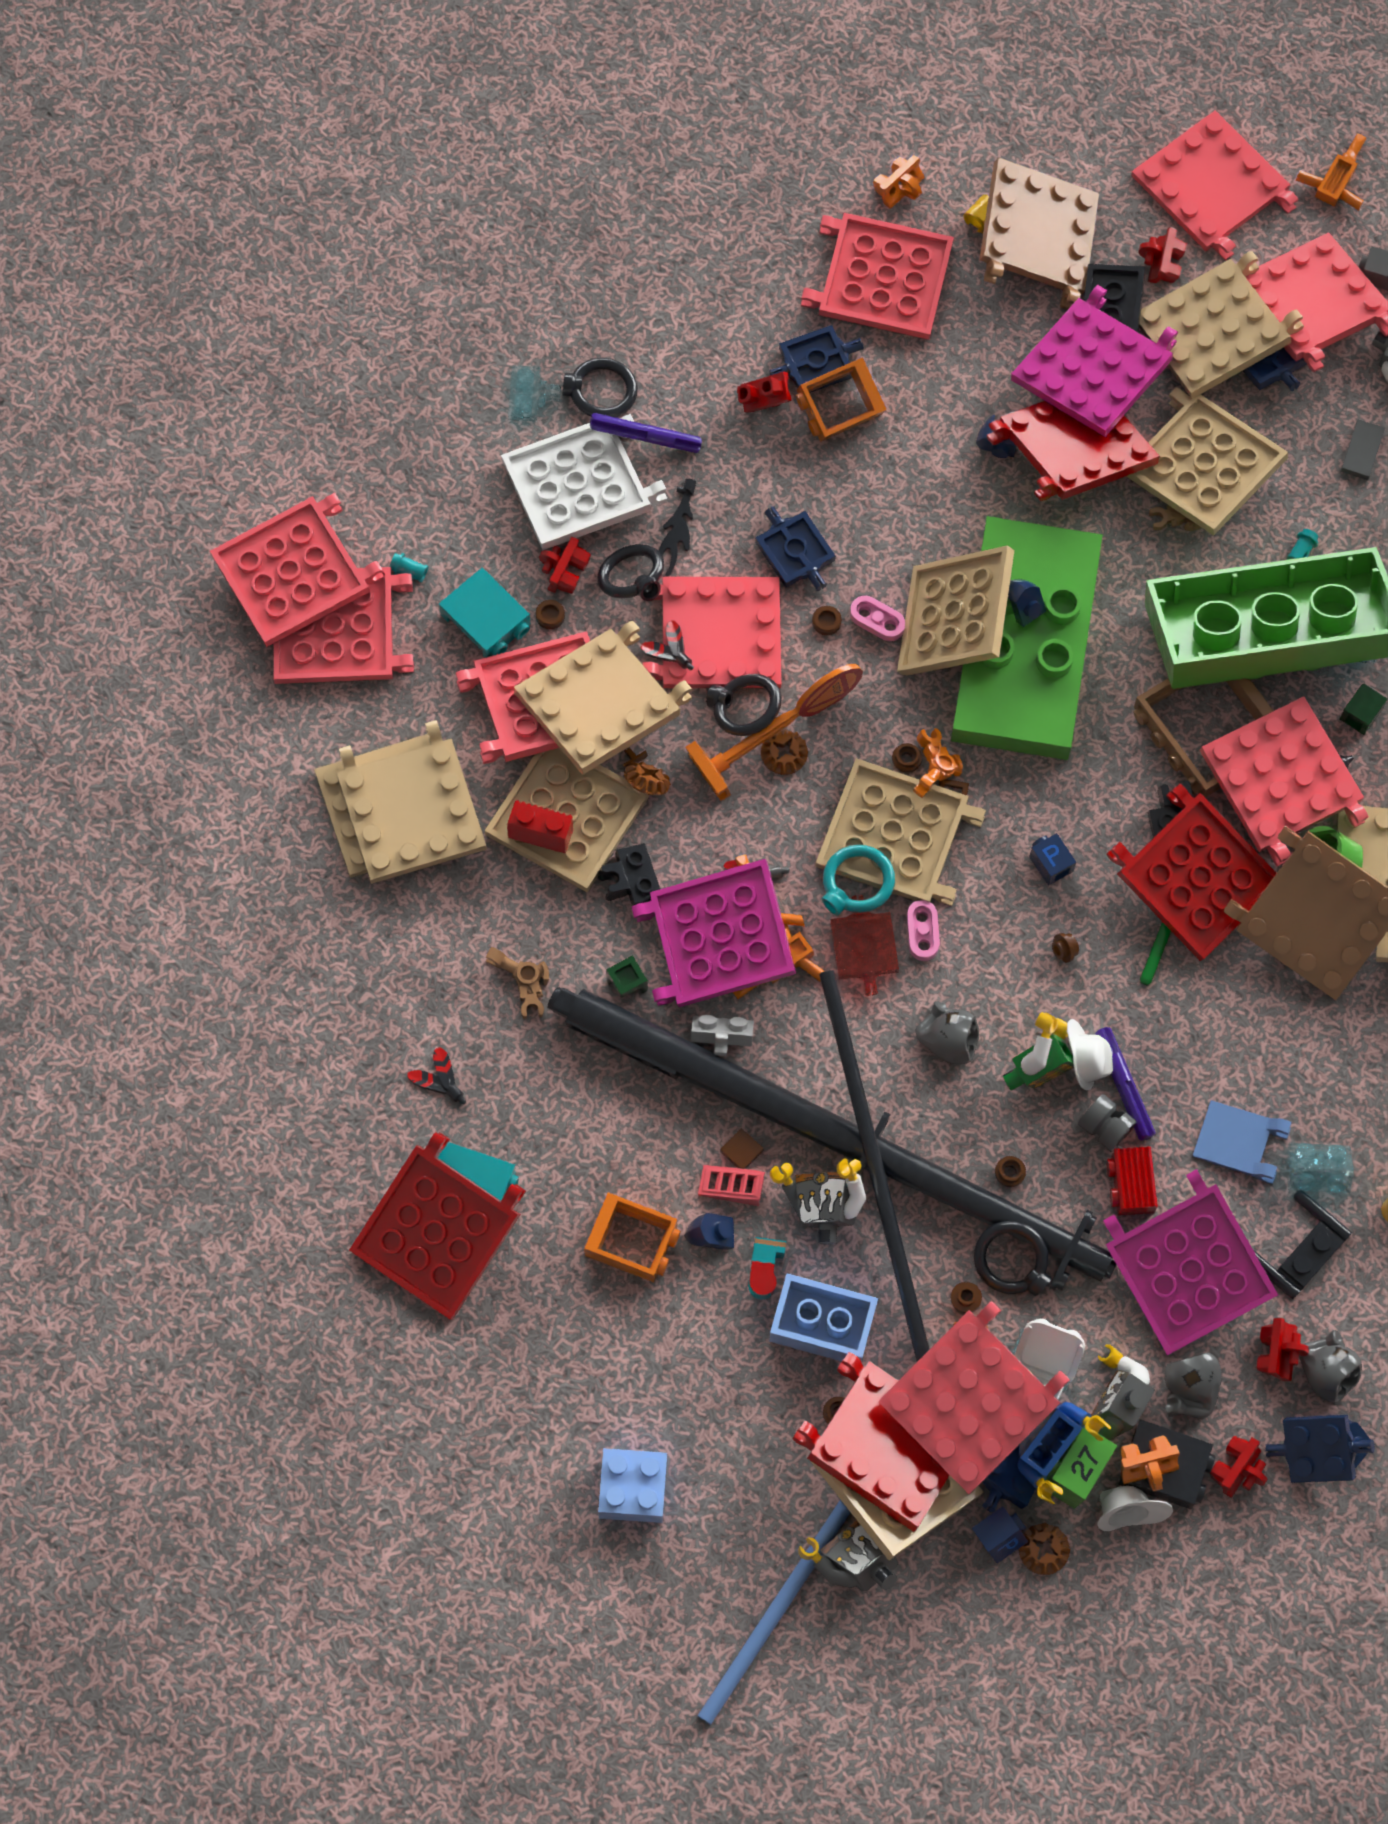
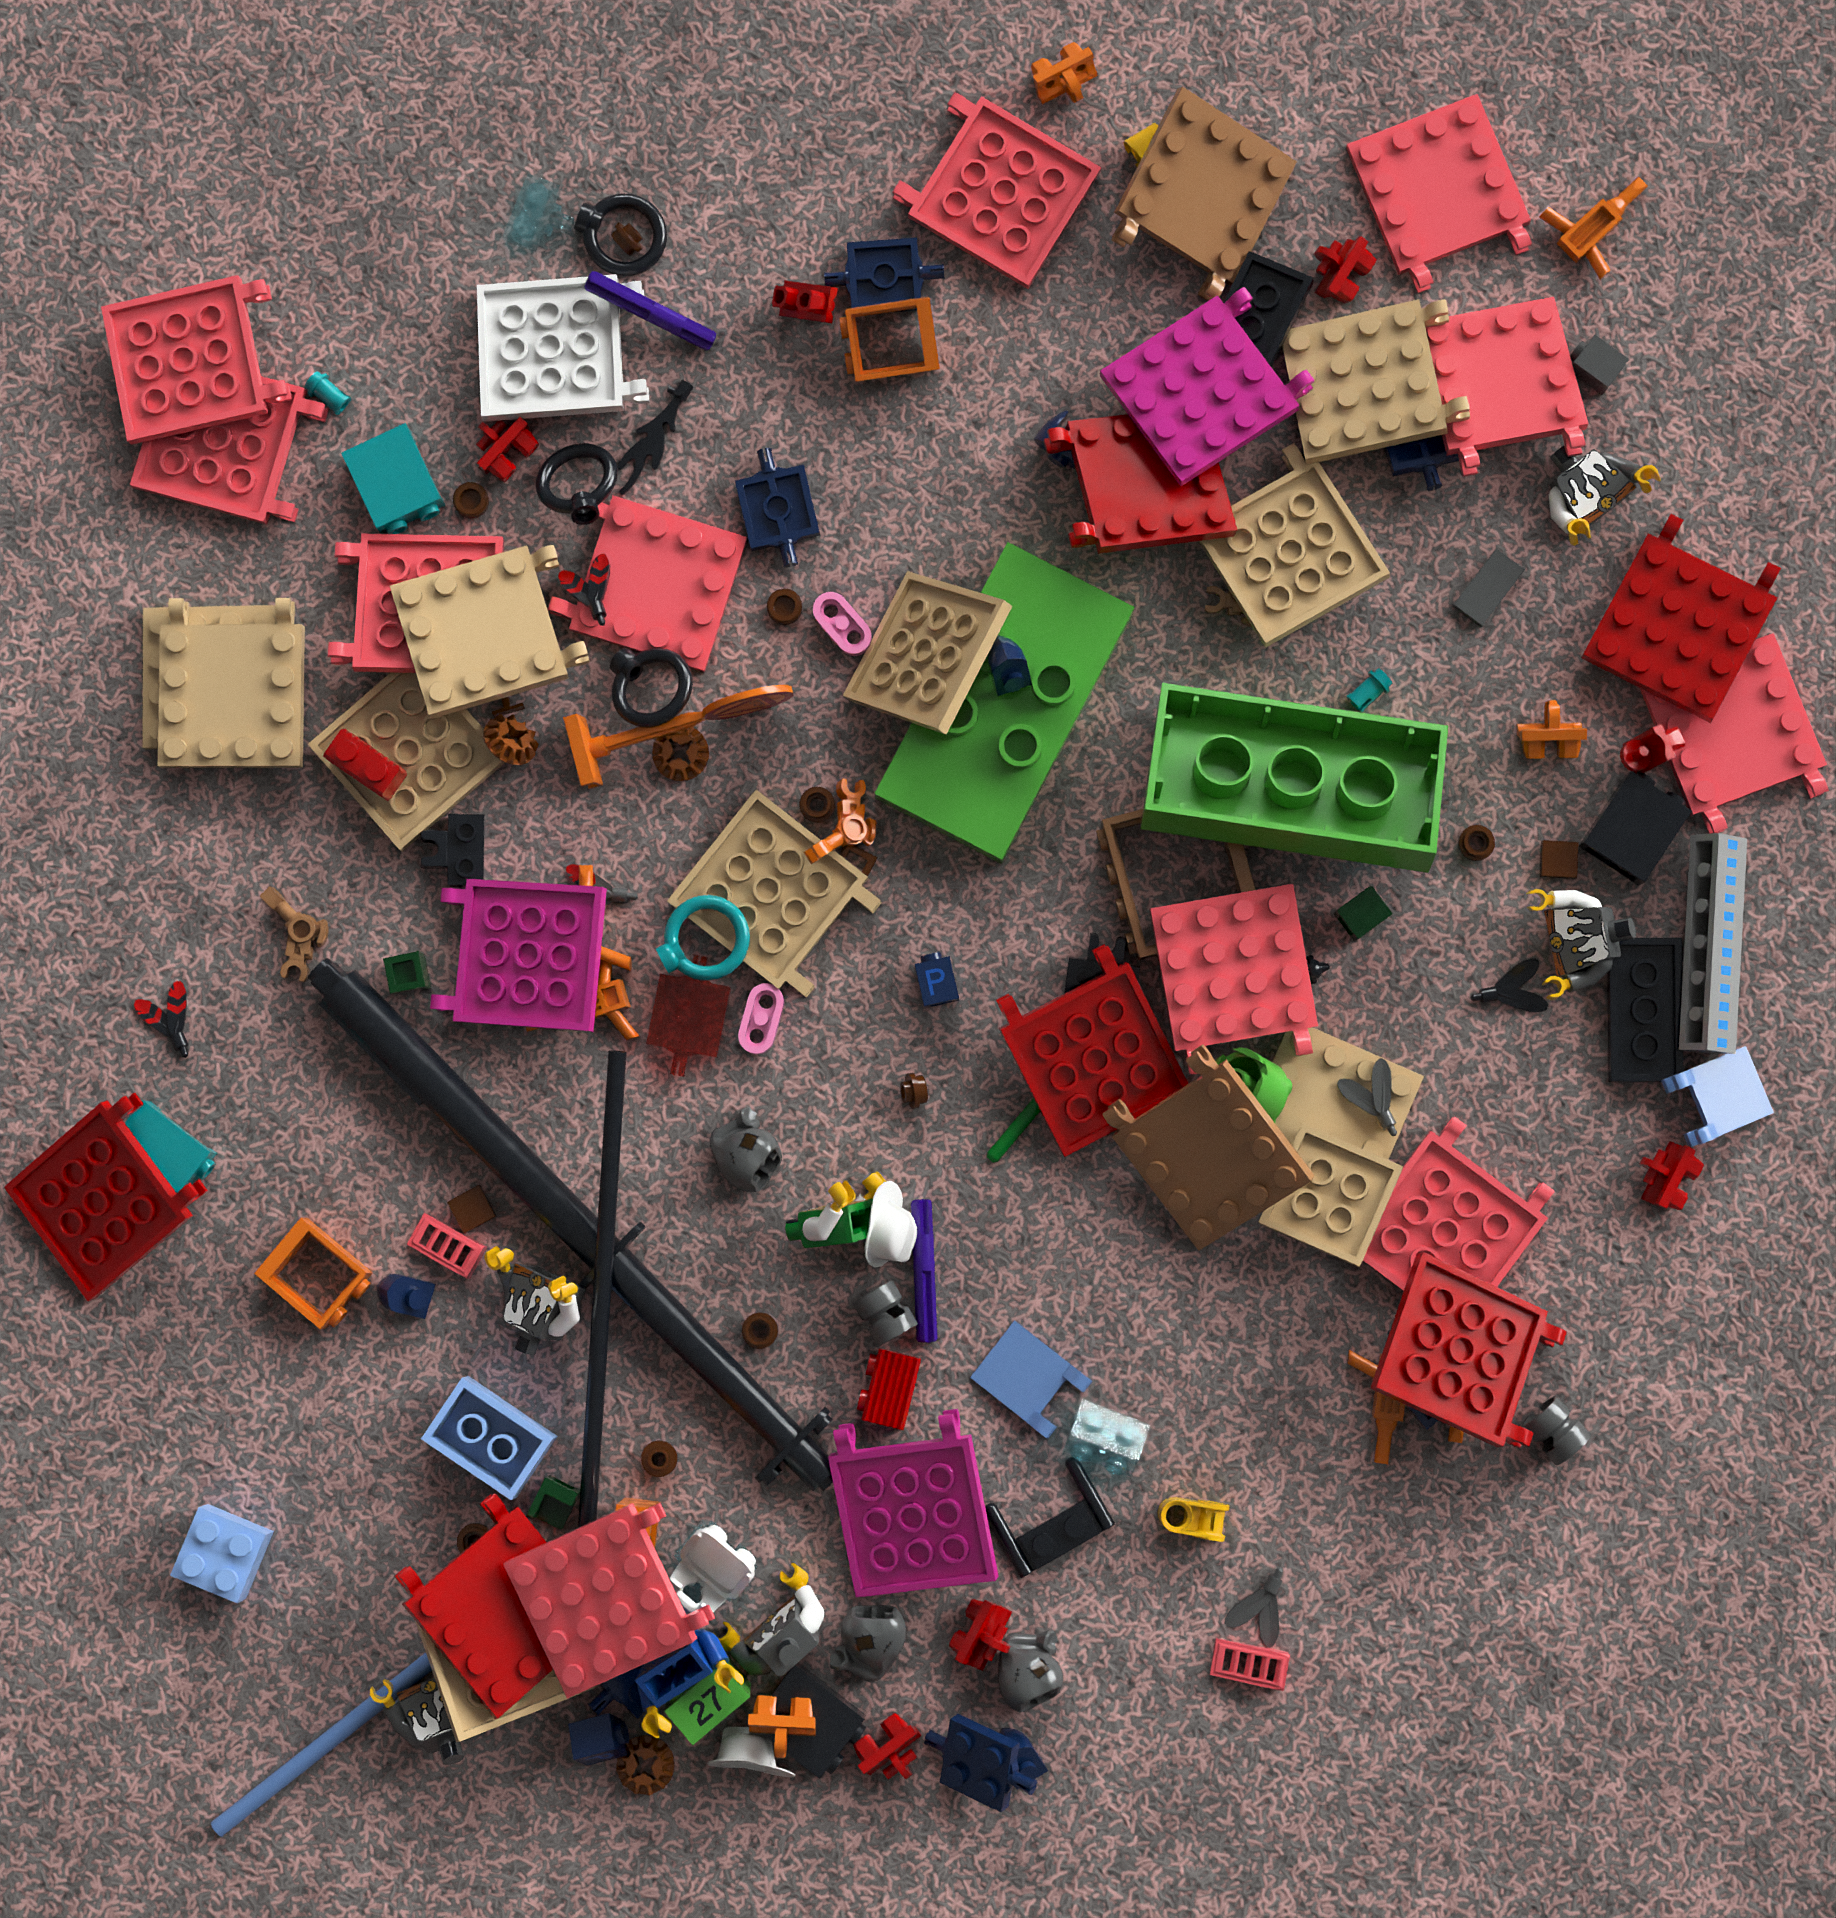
camera: 30 degrees right, 15 degrees up
(607, 388) = (627, 238): none -> reddish brown plate
(722, 1032) = (493, 1068): light grey plate -> none
(762, 1279) = (442, 1362): leg -> none
(894, 1355) = (554, 1502): none -> dark green panel
(1034, 1281) = (743, 1464): black piece -> none

